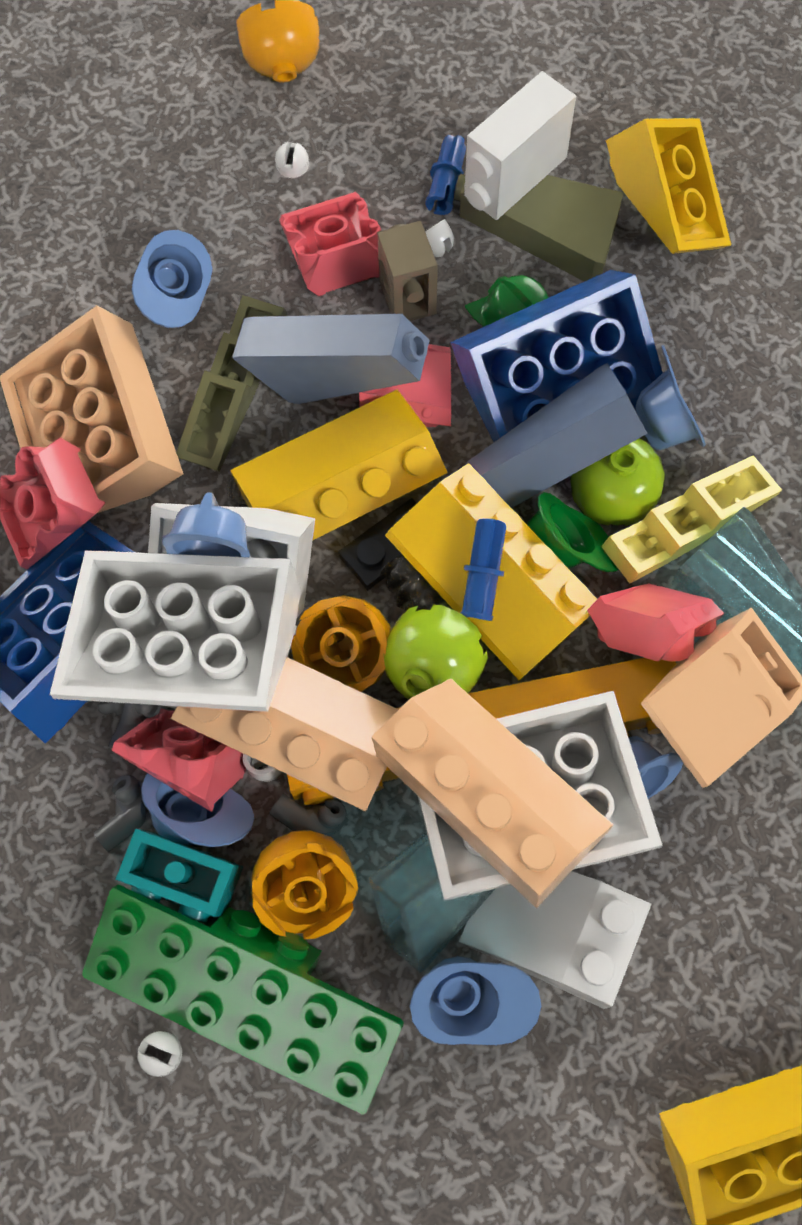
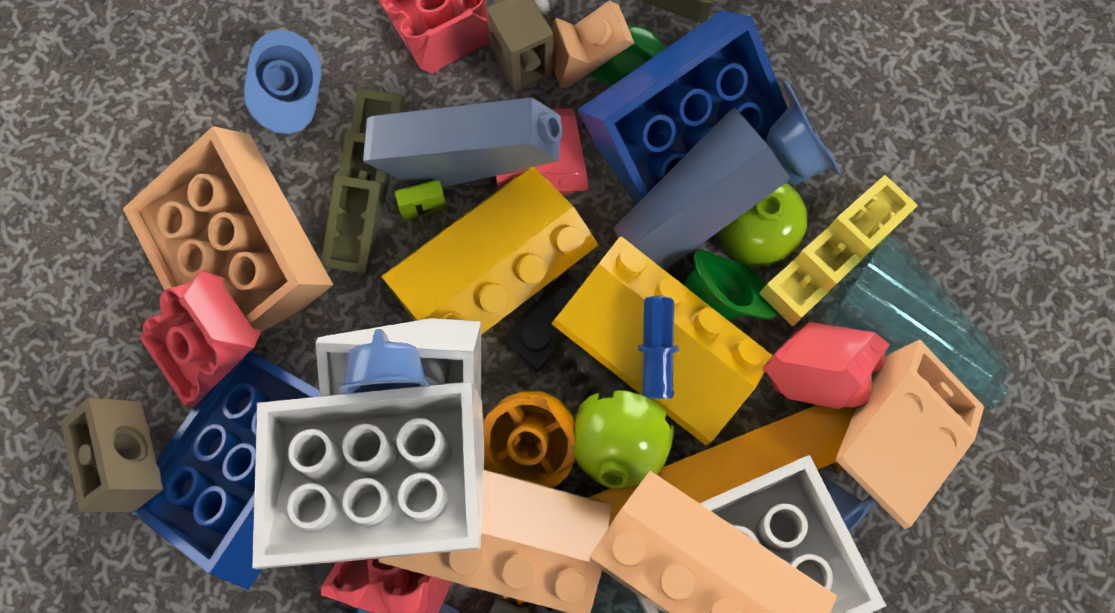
camera: 15 degrees left, 5 degrees up
(283, 408) = (421, 199): none -> lime tile
(475, 286) = (589, 43): none -> light nougat slope

